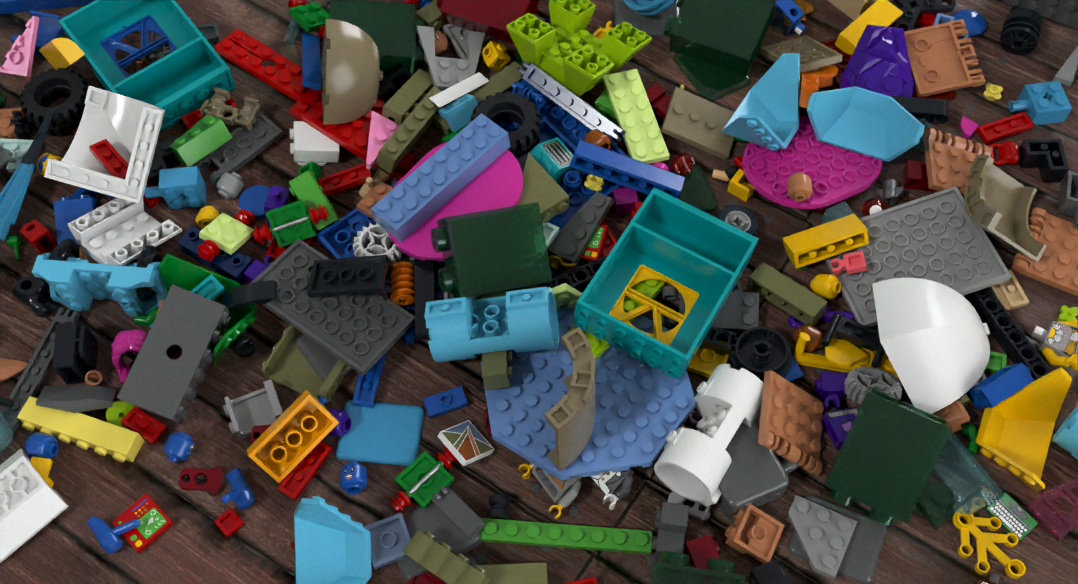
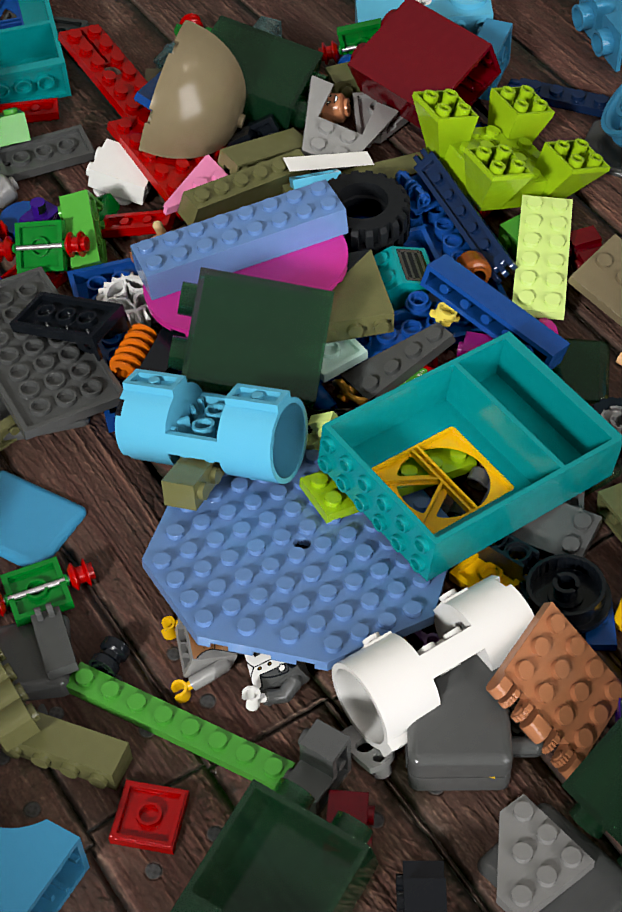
camera: 25 degrees right, 10 degrees down
(218, 109) = (35, 106): dark tan piece -> none
(368, 385) = (36, 455): blue plate -> none
(445, 402) = (116, 512): blue plate -> none
(465, 443) = (110, 564): tile -> none
(495, 55) = (399, 139): yellow brick -> none
(575, 413) = (252, 551): dark tan panel -> none
(683, 163) = (581, 332): clear red gear -> none
(754, 533) = (435, 818): nougat plate -> none

